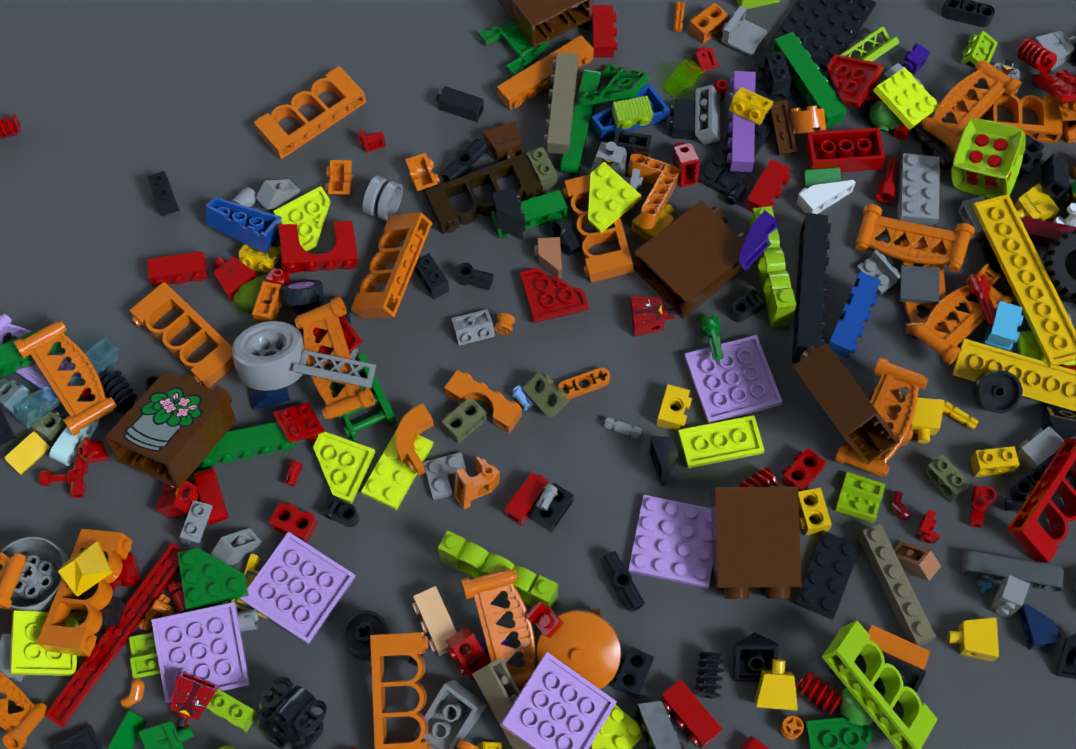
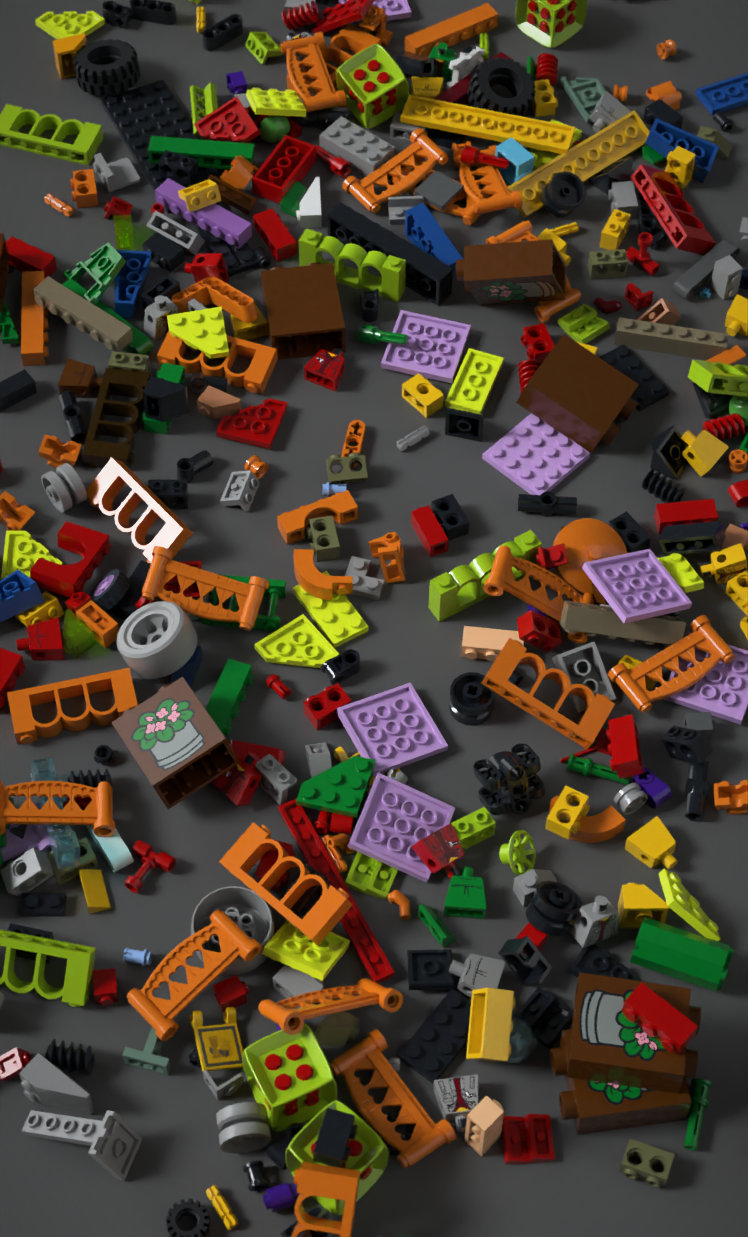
camera: 60 degrees left, 10 degrees down
(85, 569) = (267, 865): yellow slope -> none
(92, 451) = (136, 830): red bracket -> none
(299, 423) = (237, 653): red hinge -> none
(336, 376) = (223, 592): light grey fence -> none
(547, 497) = (441, 505): light grey pin -> none
(632, 112) = (137, 272): lime brick -> none
(757, 239) = (331, 249): dark purple slope -> none

